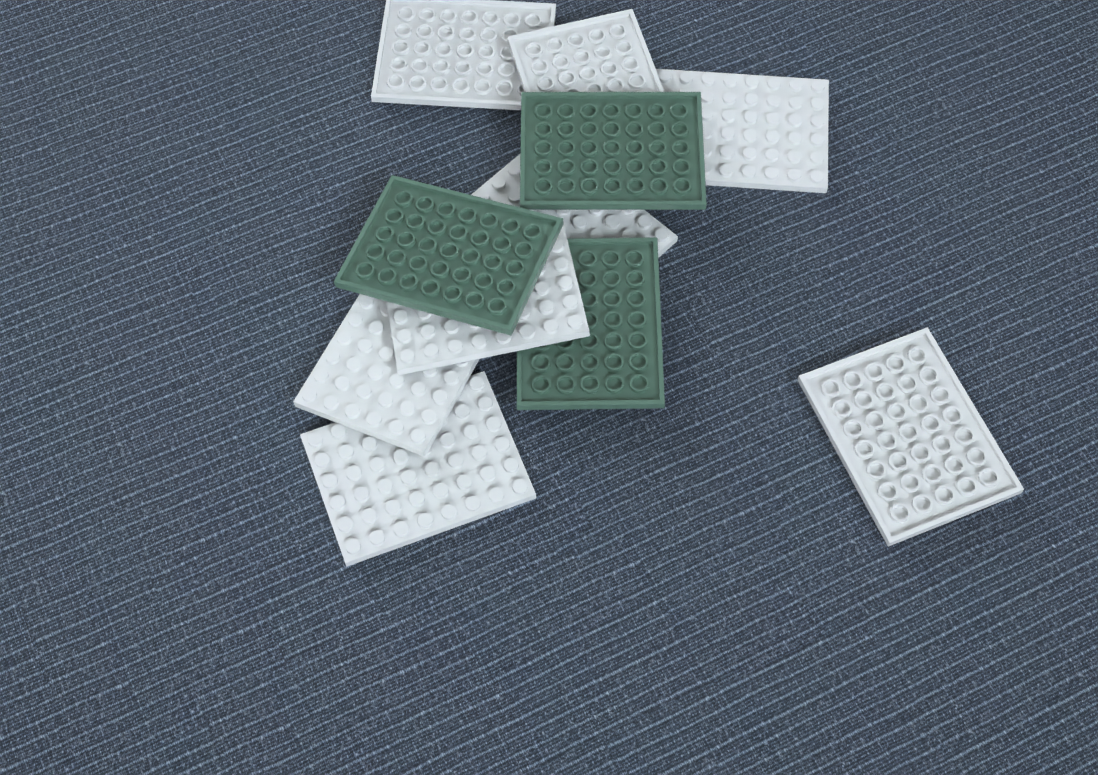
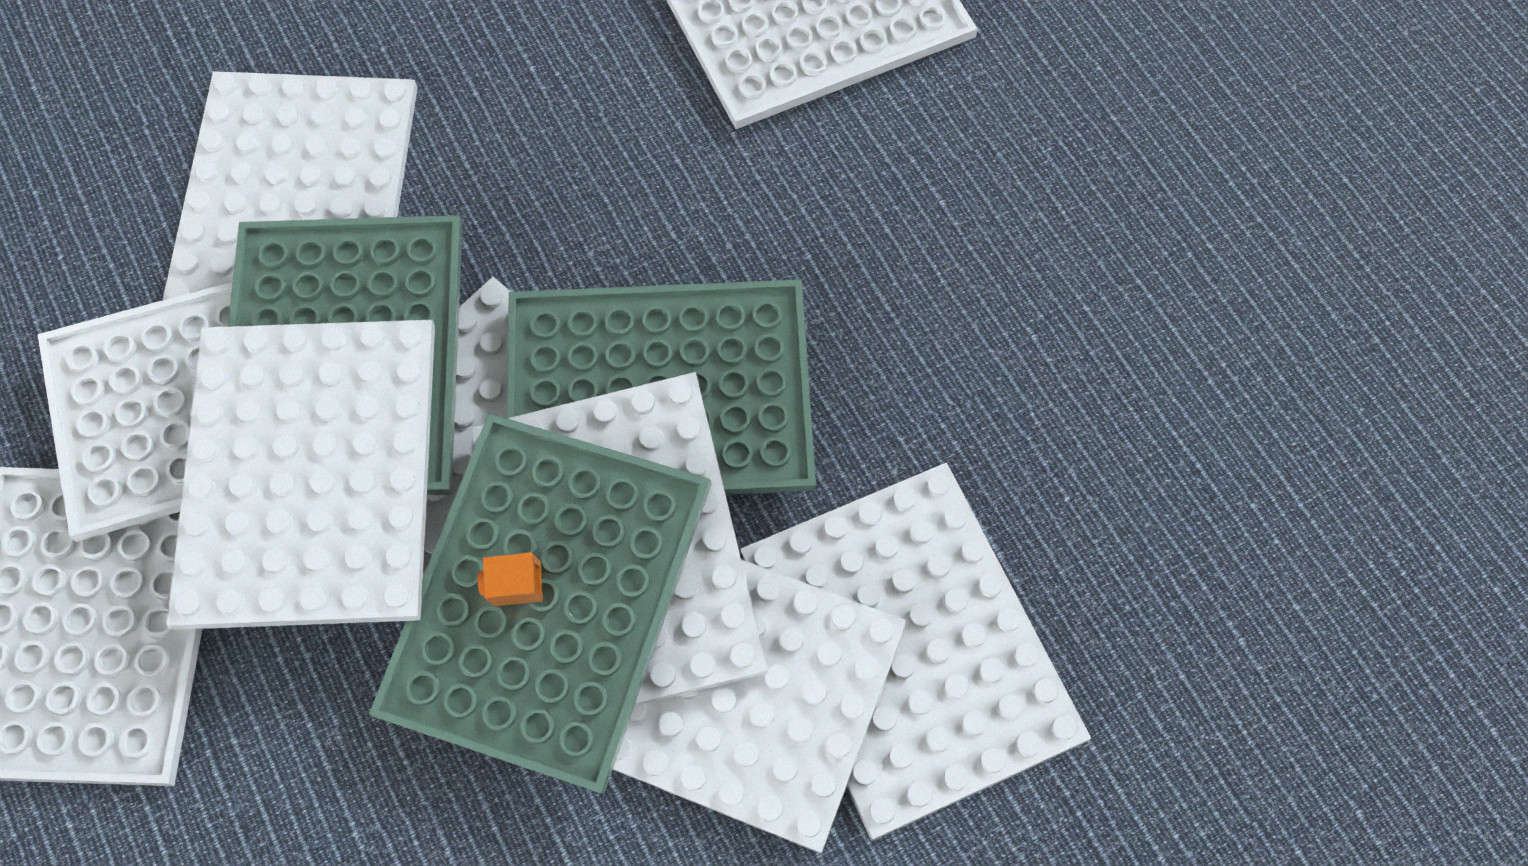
camera: 95 degrees left, 5 degrees up
(455, 230) = (511, 579): none -> orange brick
(534, 135) = (305, 476): none -> white plate

